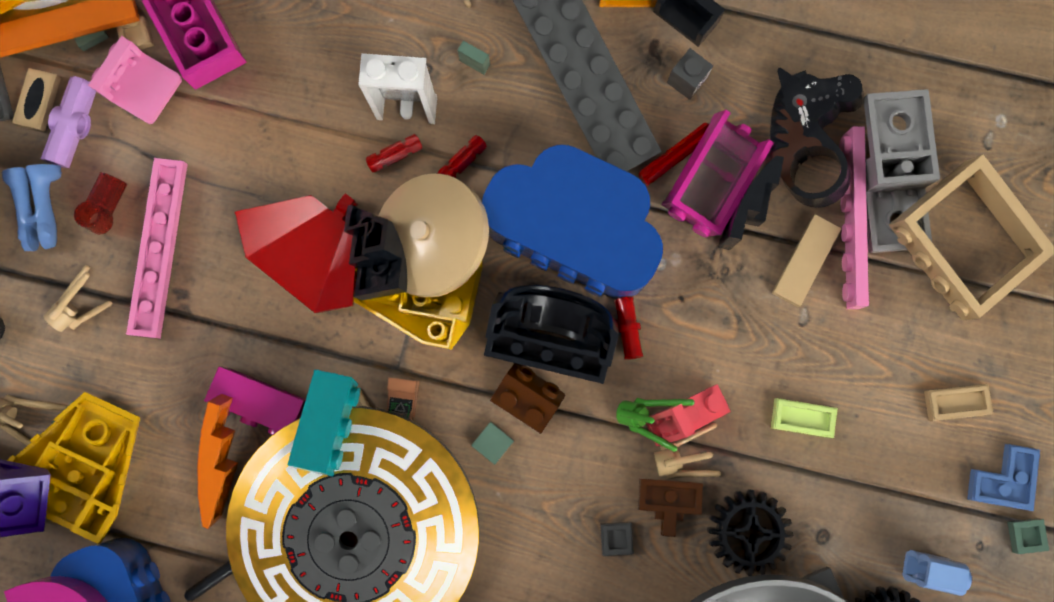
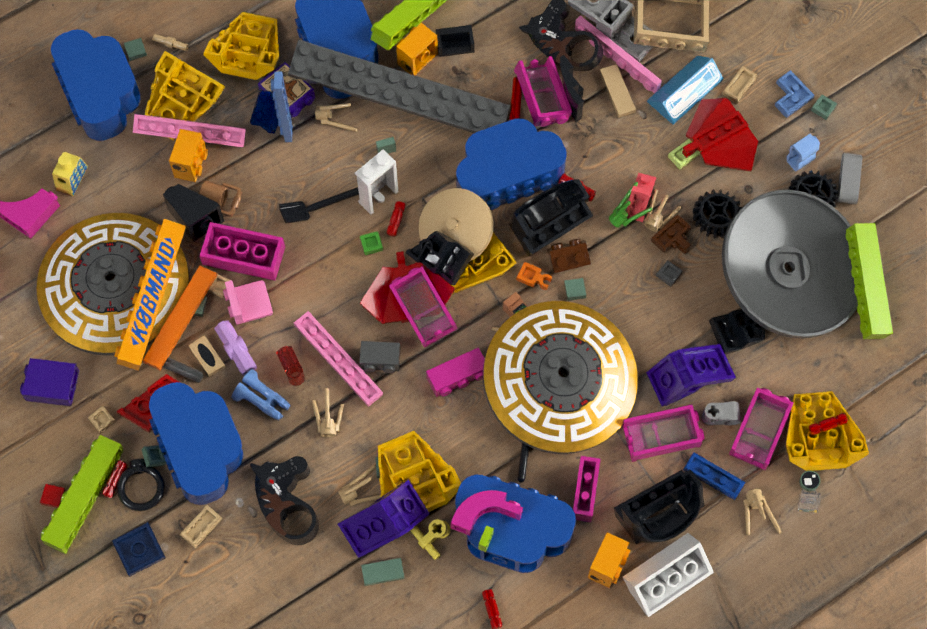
camera: 50 degrees left, 15 degrees down
(31, 557) = (426, 541): none -> light yellow piece
(198, 293) = (380, 356): none -> dark grey brick
(213, 467) = (475, 414): orange slope -> none
(297, 287) = (423, 306): none -> clear door
(303, 35) = (298, 211): none -> black piece
(324, 423) = (502, 334): teal brick -> none
(335, 153) = (371, 243): none -> bright green plate
(460, 376) = (531, 275): none -> orange plate
(464, 157) = (428, 188): red axle -> none
(689, 73) = (485, 64): dark grey brick -> none
(864, 443) = (721, 136): none -> red panel
(890, 341) = (686, 88): none -> dark azure slope

